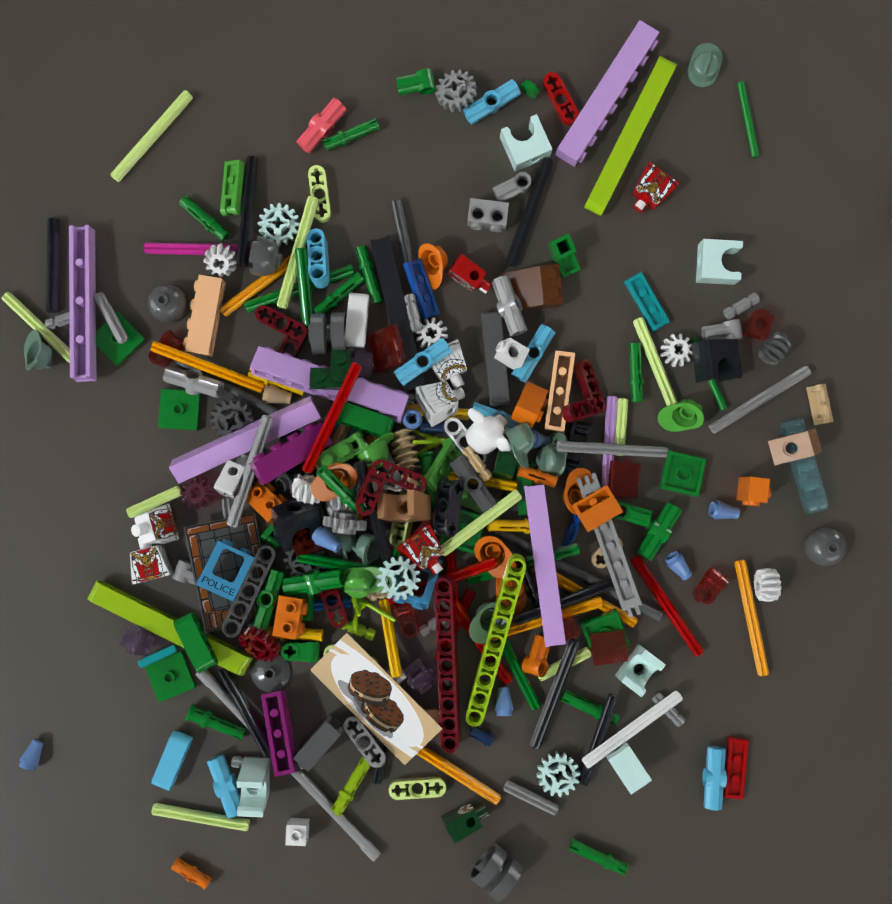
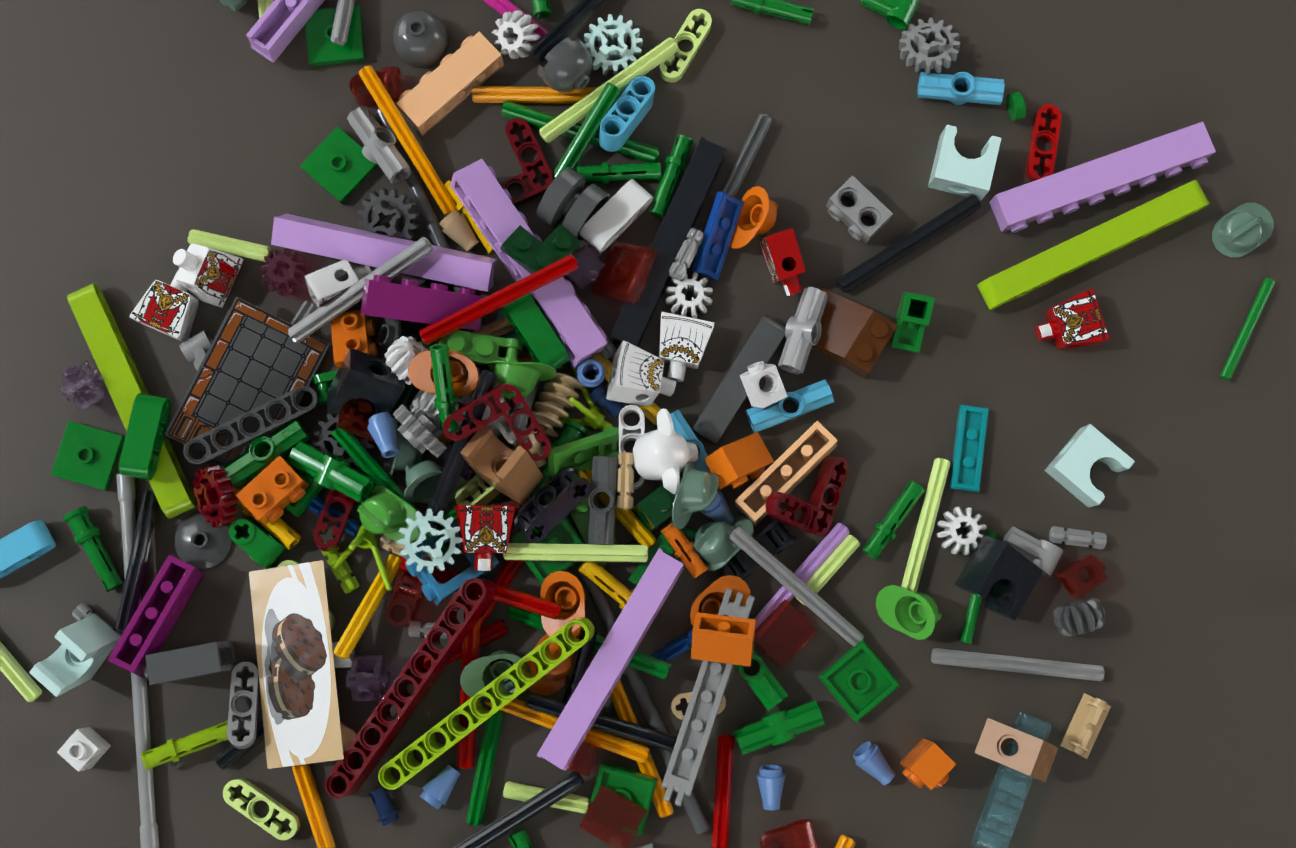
camera: 35 degrees right, 5 degrees down
(157, 655) = (93, 420): teal tile -> none
(218, 585) = (221, 390): dark azure window -> none
(224, 784) = (46, 625): medium azure piece -> none
(433, 354) = (672, 316): medium azure piece -> none
(510, 187) = (907, 201): light grey piece -> none
(536, 662) = (514, 768): orange piece -> none

